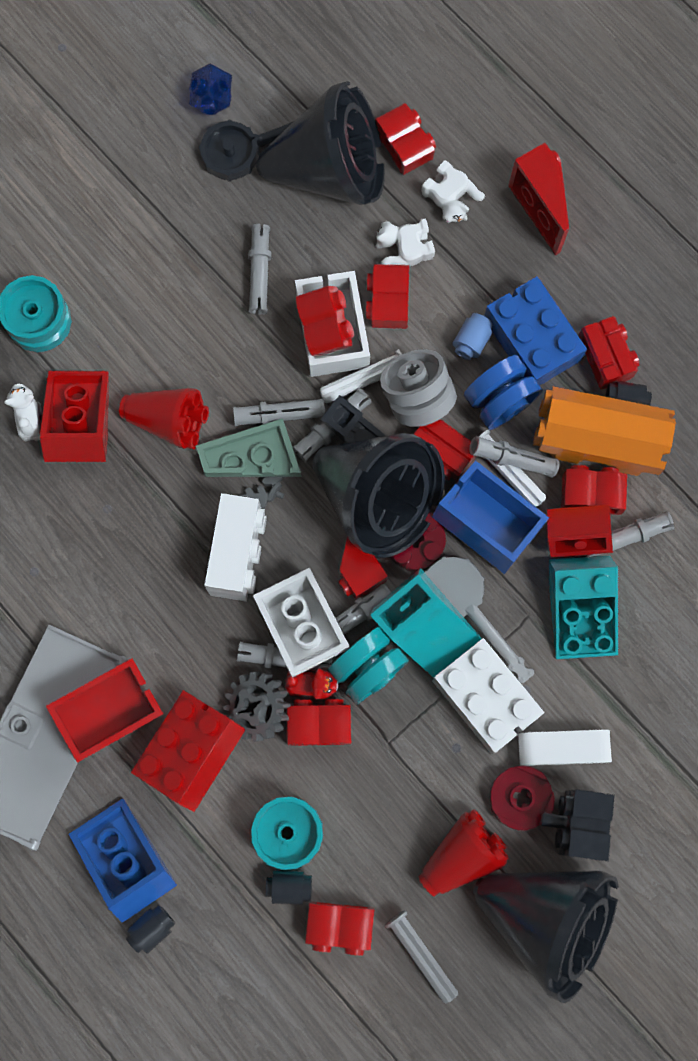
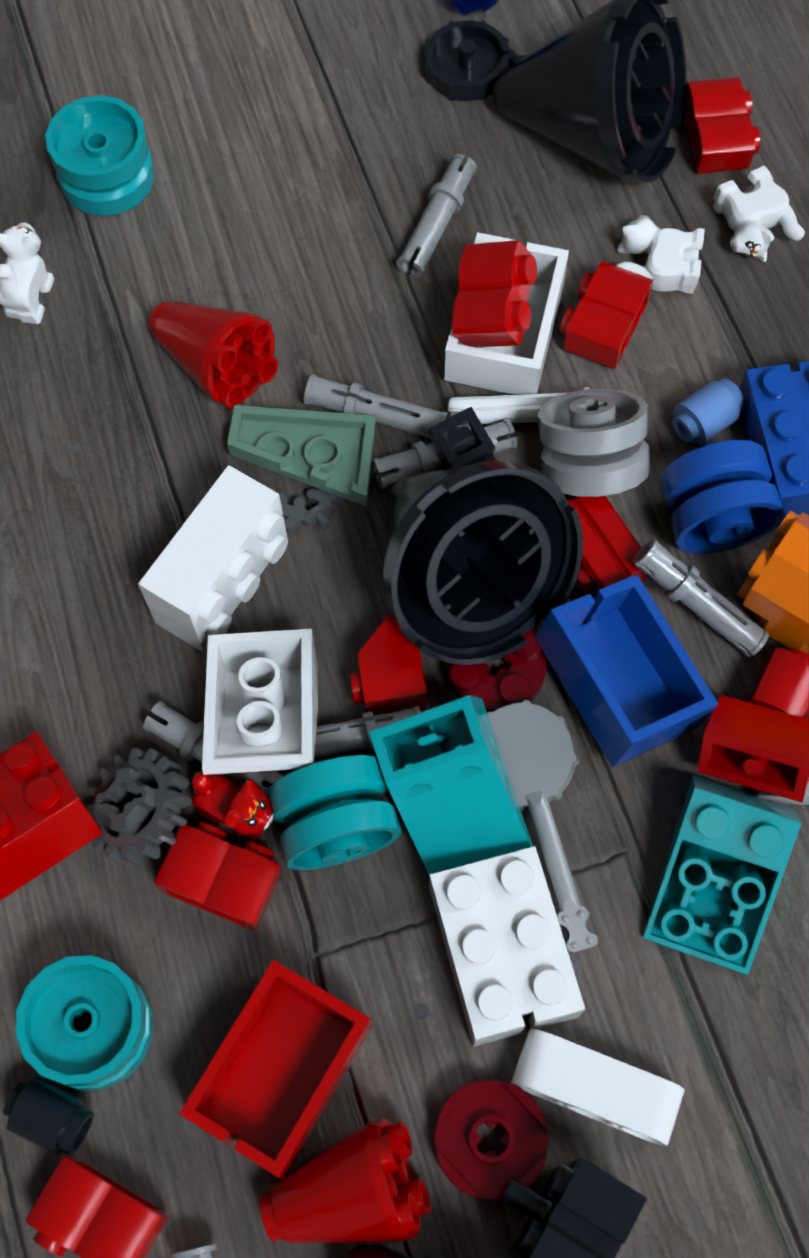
camera: 25 degrees right, 10 degrees down
(75, 416) = (86, 307): red slope -> none
(400, 811) = (277, 1069): none -> red piece
(518, 479) = (693, 637): white axle -> none

